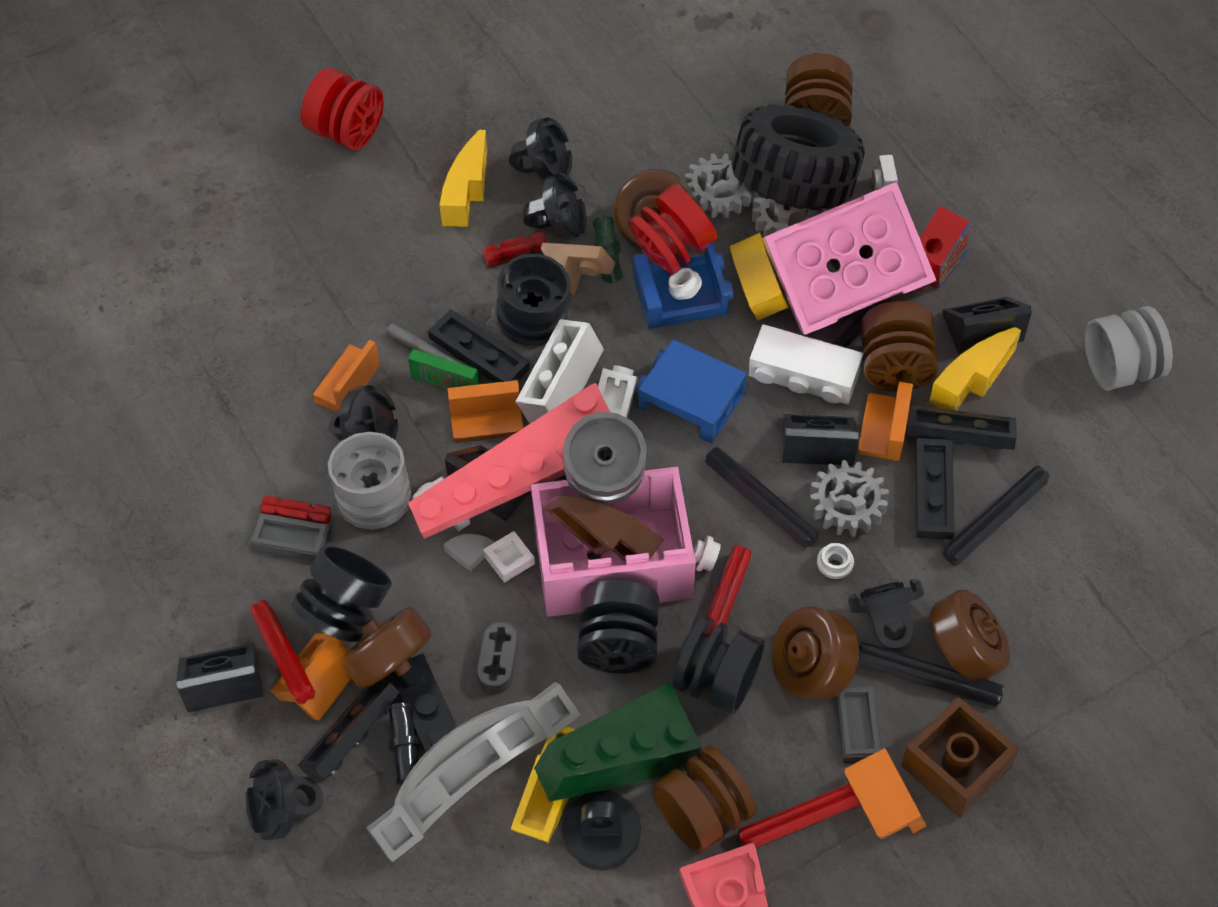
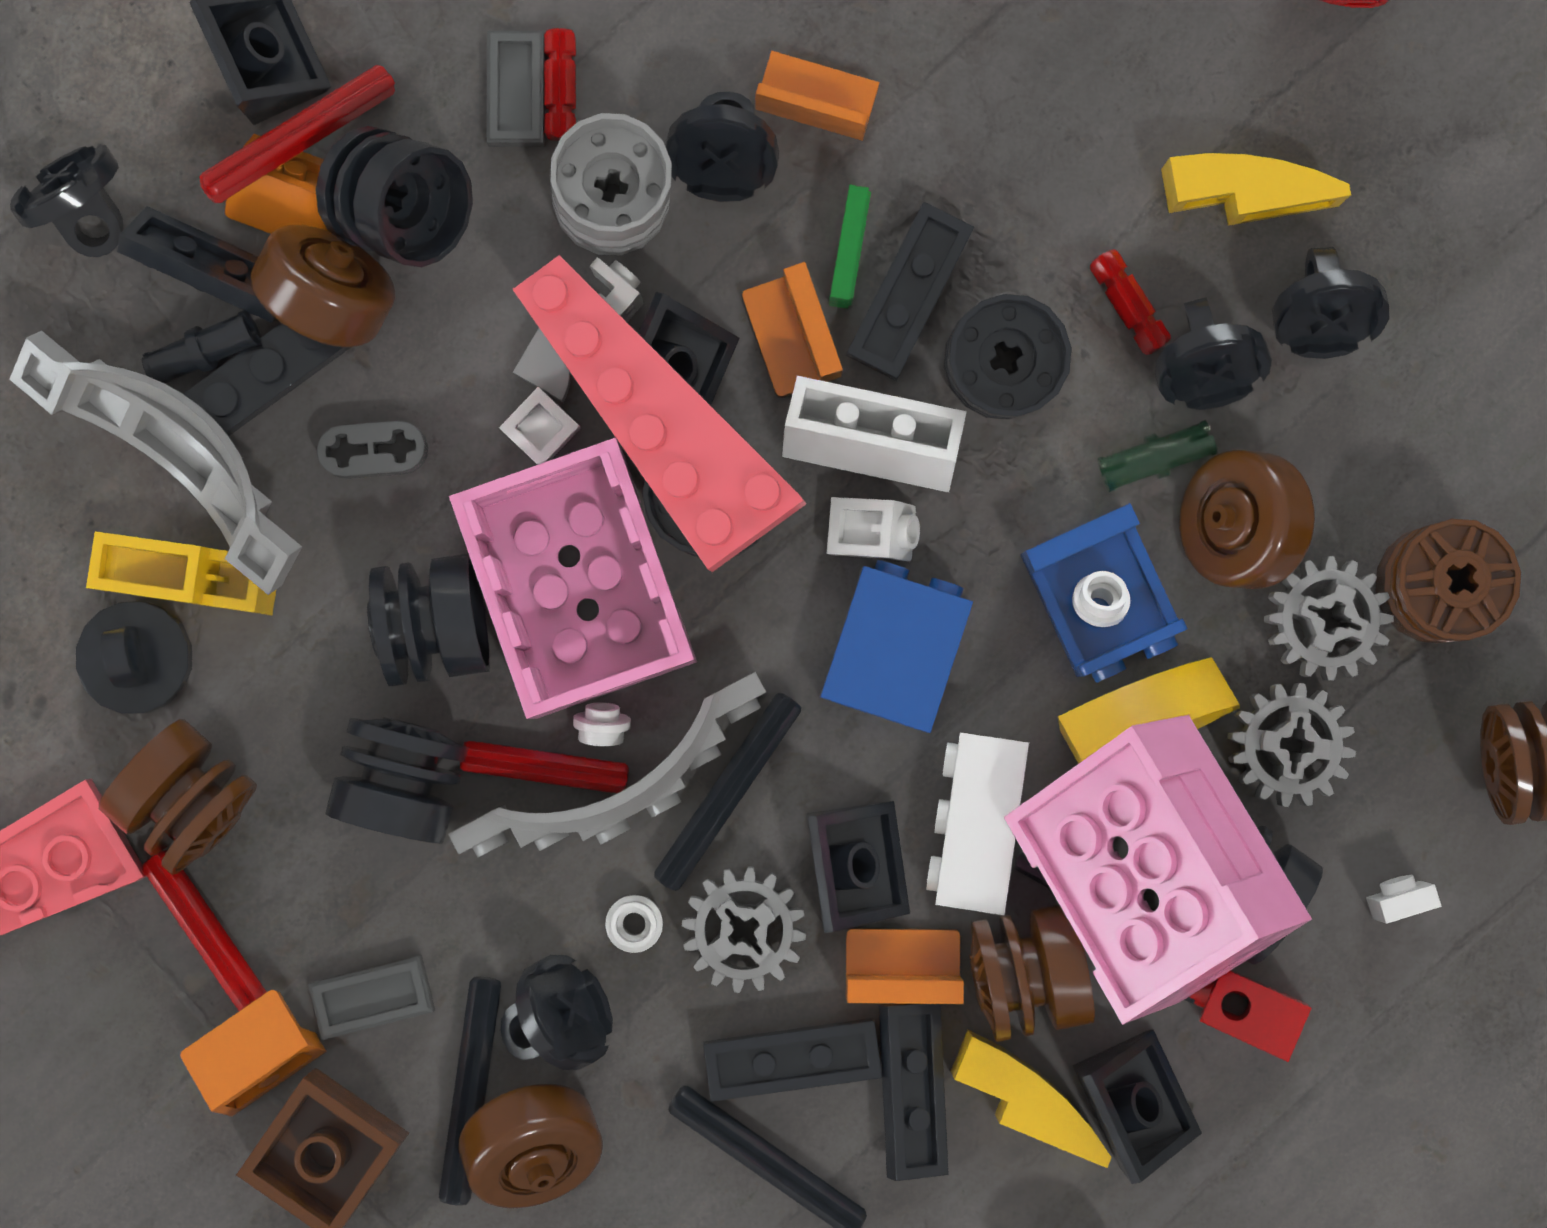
camera: 75 degrees right, 30 degrees up
(415, 342) = (897, 216): flat silver bar -> none
(579, 260) = (1101, 401): medium nougat slope -> none
(603, 527) = (567, 568): reddish brown slope -> none
(604, 436) = (609, 553): flat silver wheel -> none
(620, 747) = (237, 674): dark green wedge -> none
(678, 225) = (1164, 552): red wheel -> none
(709, 121) = (1418, 585): none -> reddish brown wheel
(755, 535) = (608, 817): none -> light grey piece
(797, 157) = (1437, 757): black tyre -> none
(815, 653) = (455, 919): reddish brown wheel -> none

